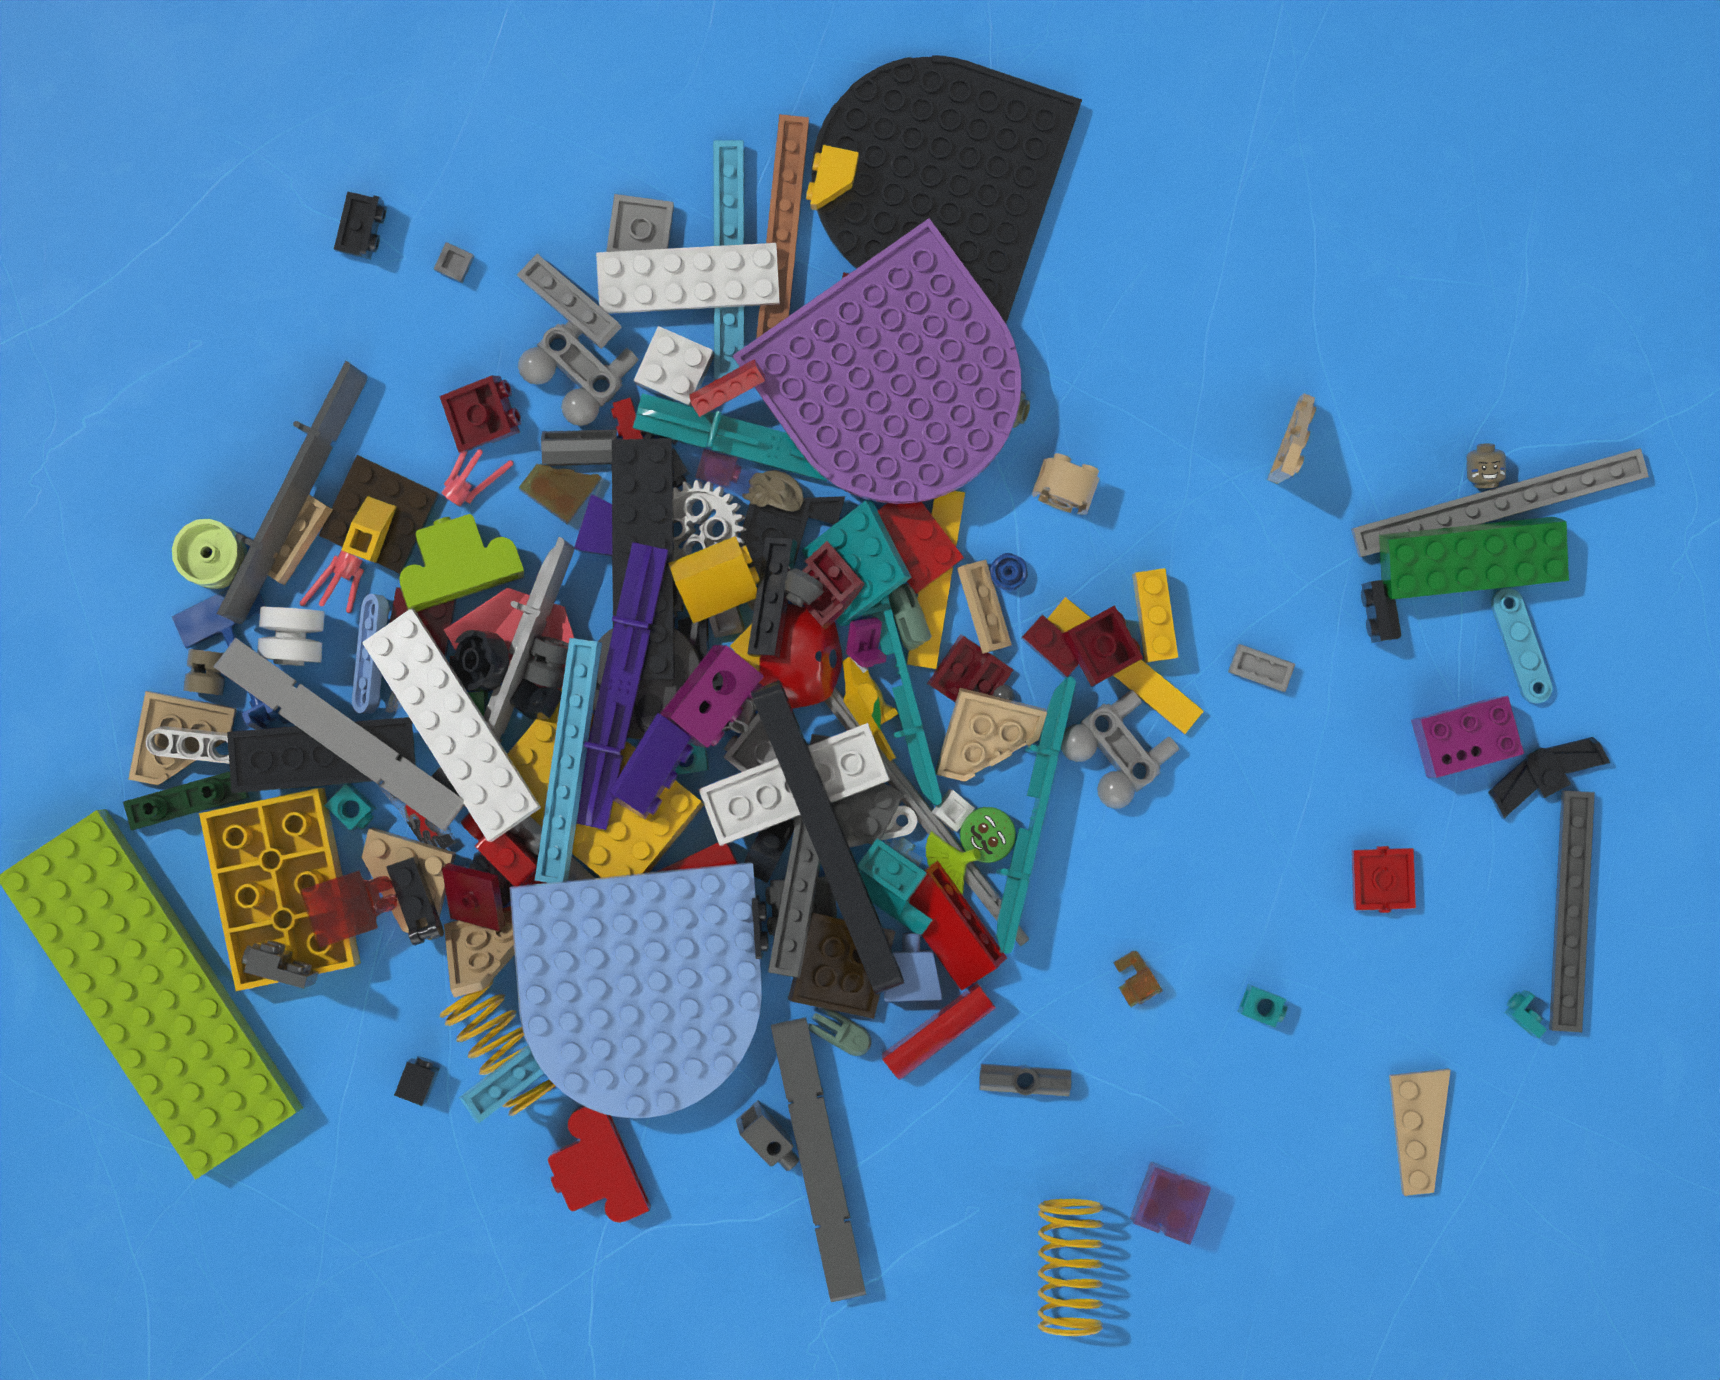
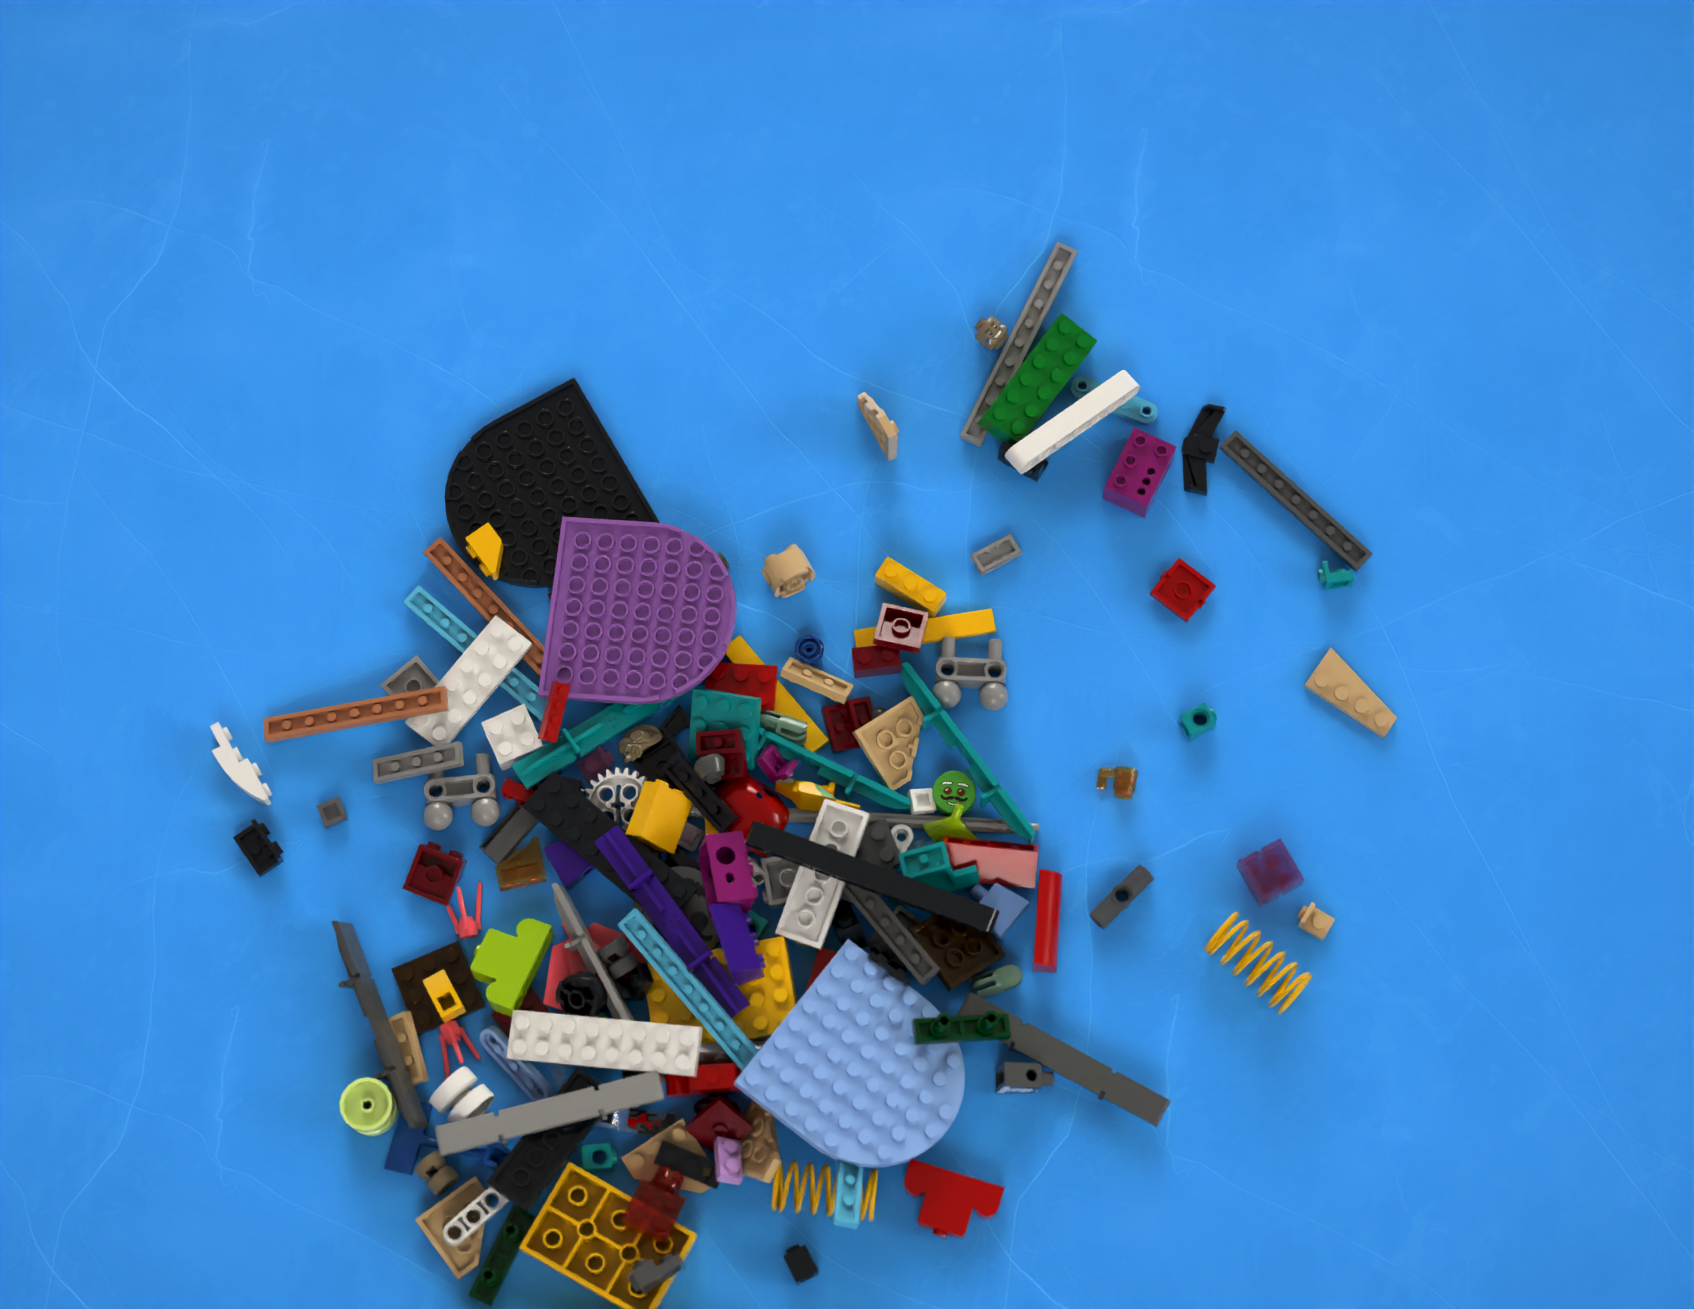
camera: 40 degrees left, 15 degrees down
(415, 144) = (240, 772): none -> white slope
(447, 935) = (728, 1160): none -> lavender plate
(563, 199) = (356, 714): none -> nougat plate
(758, 1046) = (961, 1028): none -> dark green plate
(1161, 1281) = (1315, 921): none -> tan bracket
(1461, 629) = (1072, 421): none -> white beam

